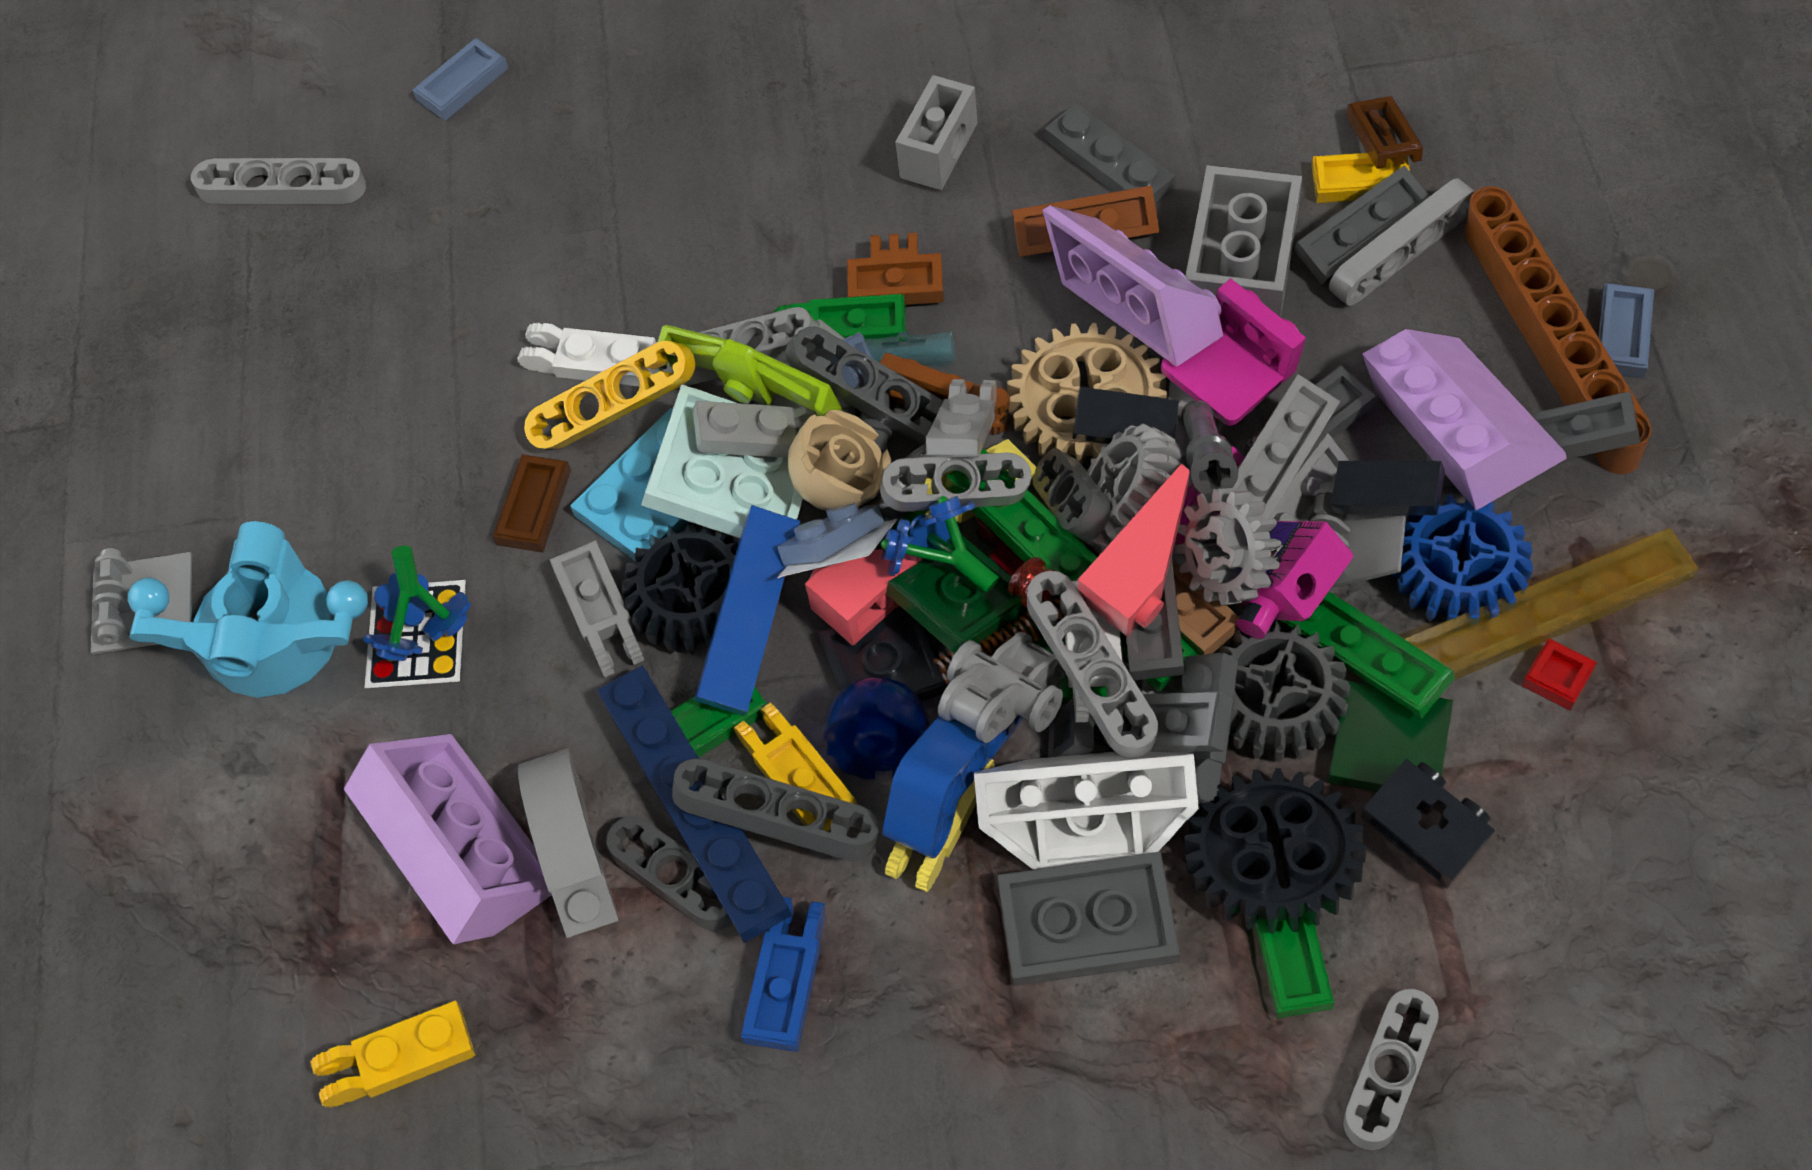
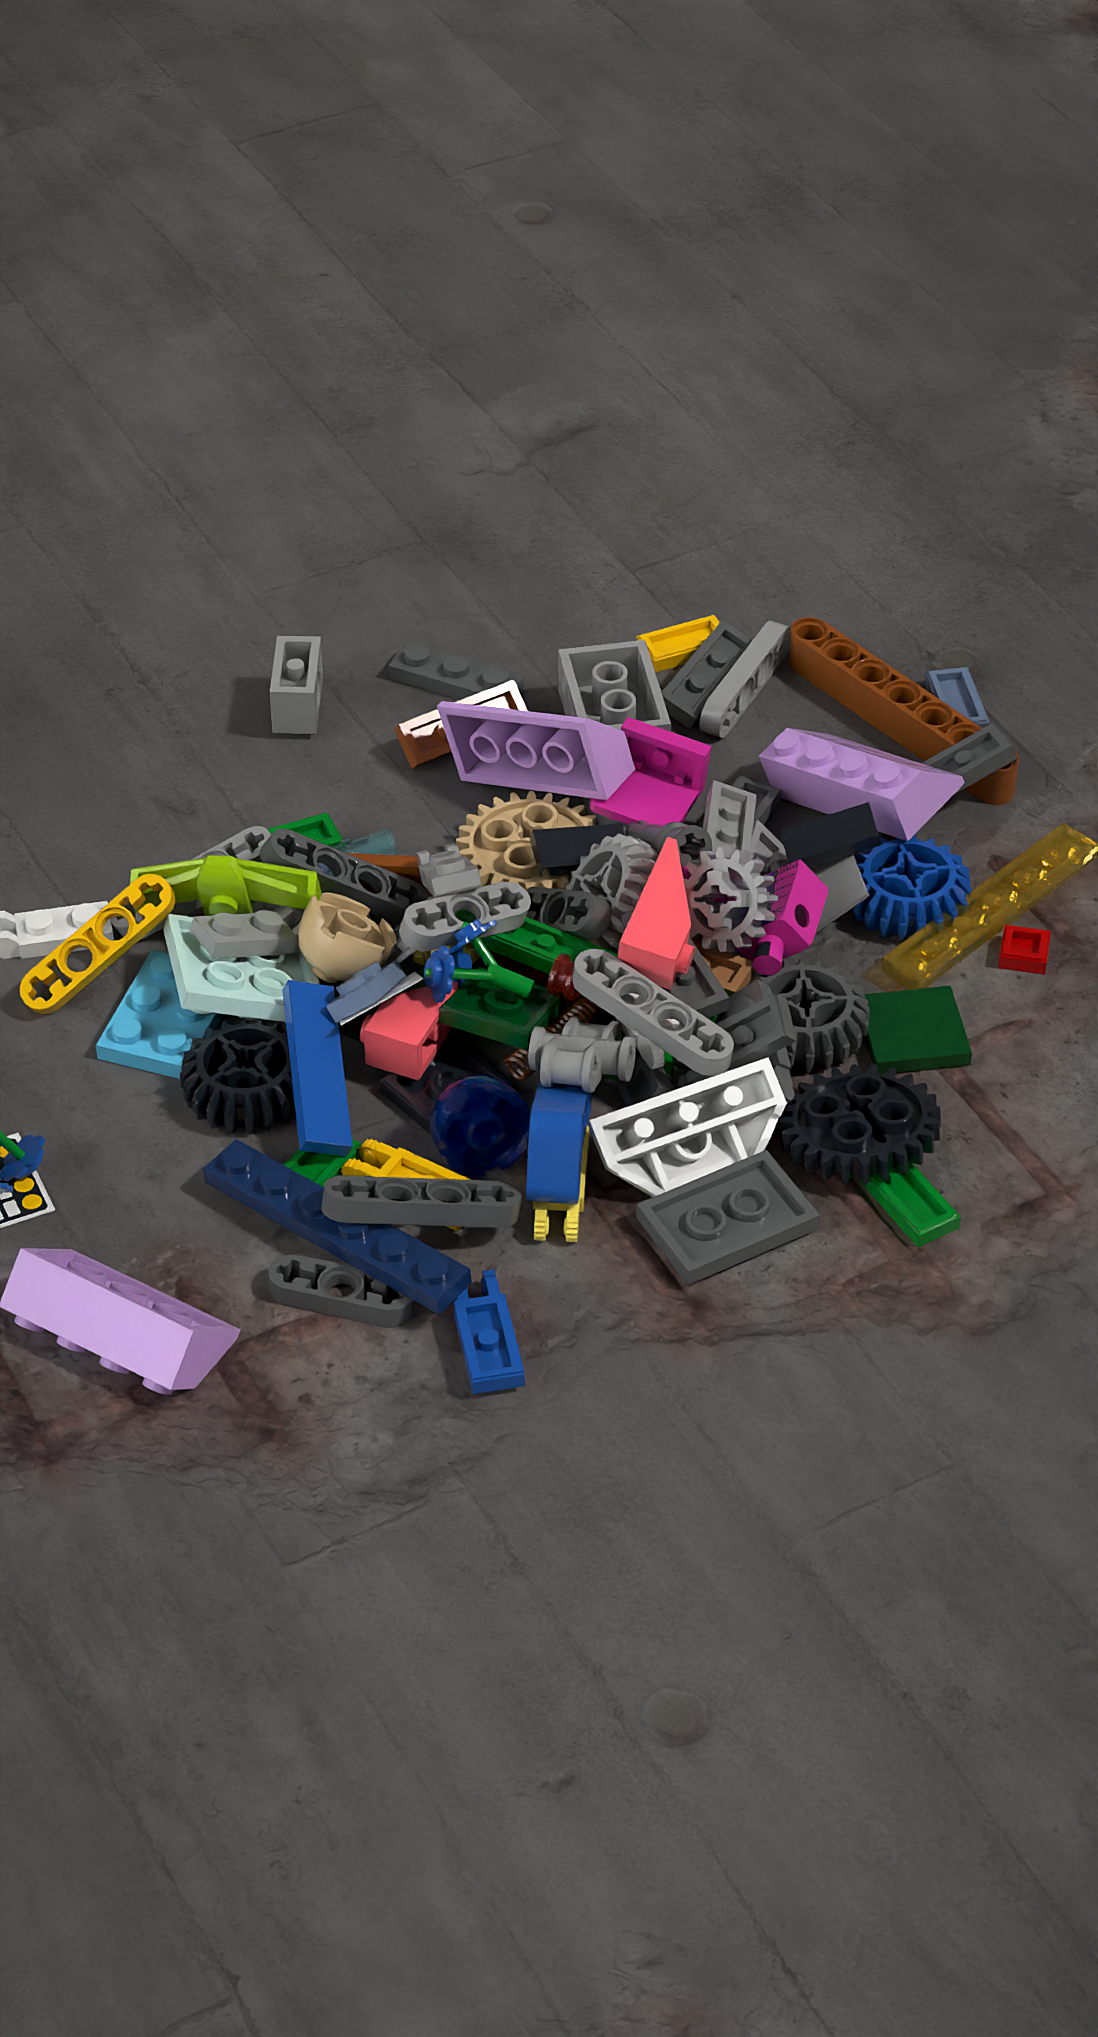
camera: 30 degrees left, 15 degrees down
(396, 1055) = (153, 1498): yellow hinge -> none
(532, 503) = (53, 1056): reddish brown tile -> none
(565, 842) = (243, 1278): light grey arch -> none
(595, 603) = (163, 1113): light grey hinge -> none
(897, 272) = (311, 798): dark orange hinge -> none
(1362, 1099) = (1018, 1264): light grey beam -> none
(1376, 134) = (689, 604): reddish brown tile -> none
(1377, 654) = (878, 964): green tile -> none
(1397, 817) = (975, 1067): black brick -> none

